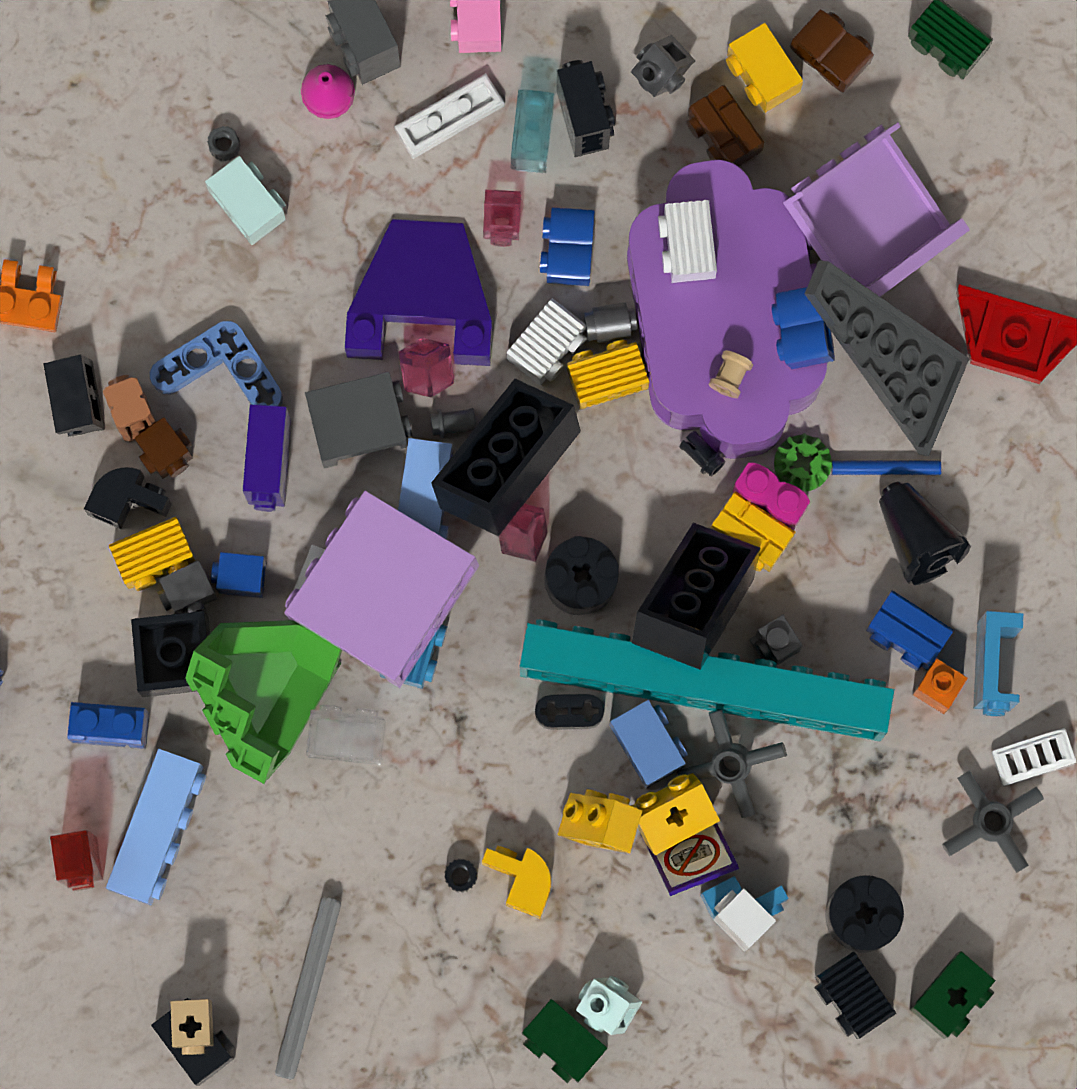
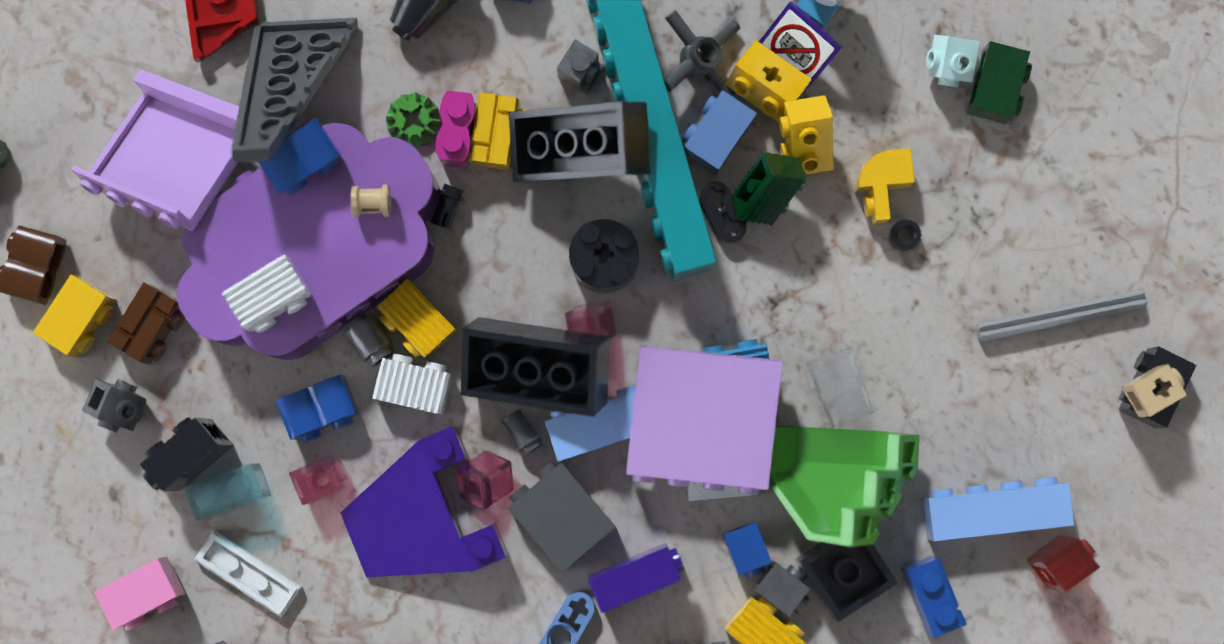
camera: 115 degrees left, 5 degrees up
(567, 758) = (768, 188): none -> dark green brick
(886, 467) = (383, 48): blue bar -> none

